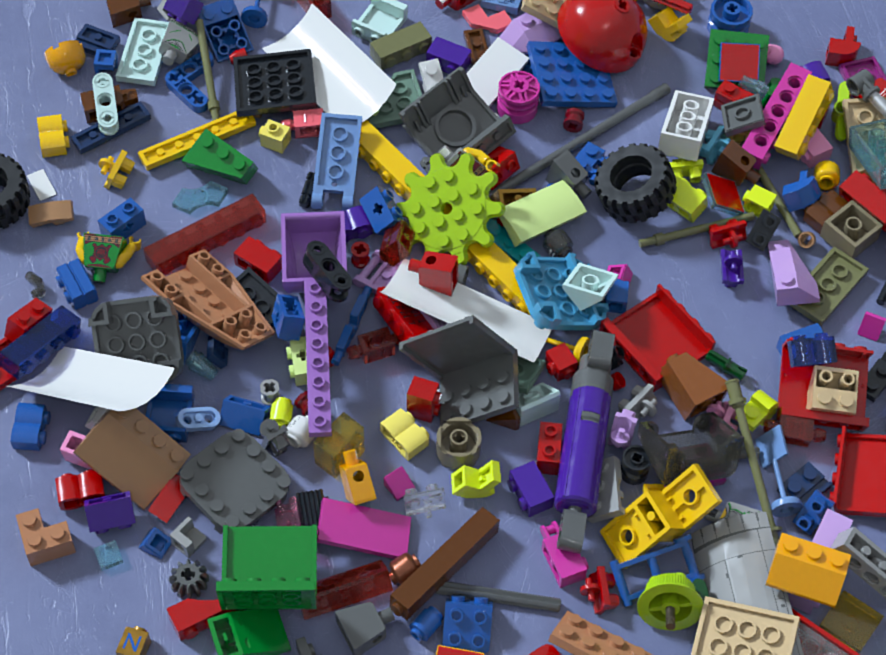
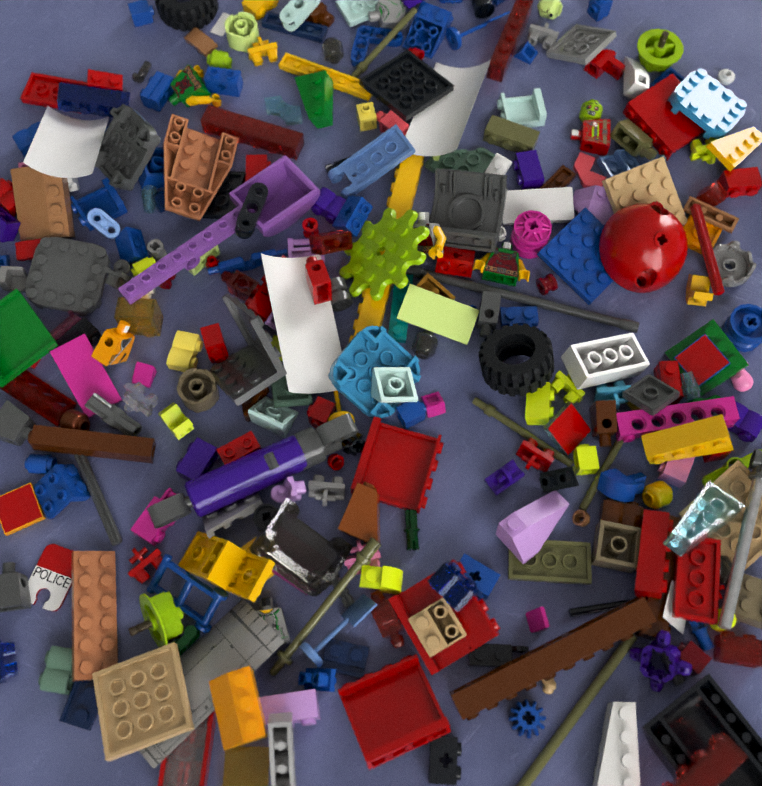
camera: 55 degrees right, 10 degrees up
(78, 170) = (241, 31): none -> yellowish green brick
(91, 211) = (219, 59): none -> lime head
(172, 114) = (332, 50): none -> clear smoke head
(288, 317) = (211, 214): blue brick -> none
(425, 531) = (113, 415): none -> dark grey piece
(533, 137) = (502, 266): none -> torso

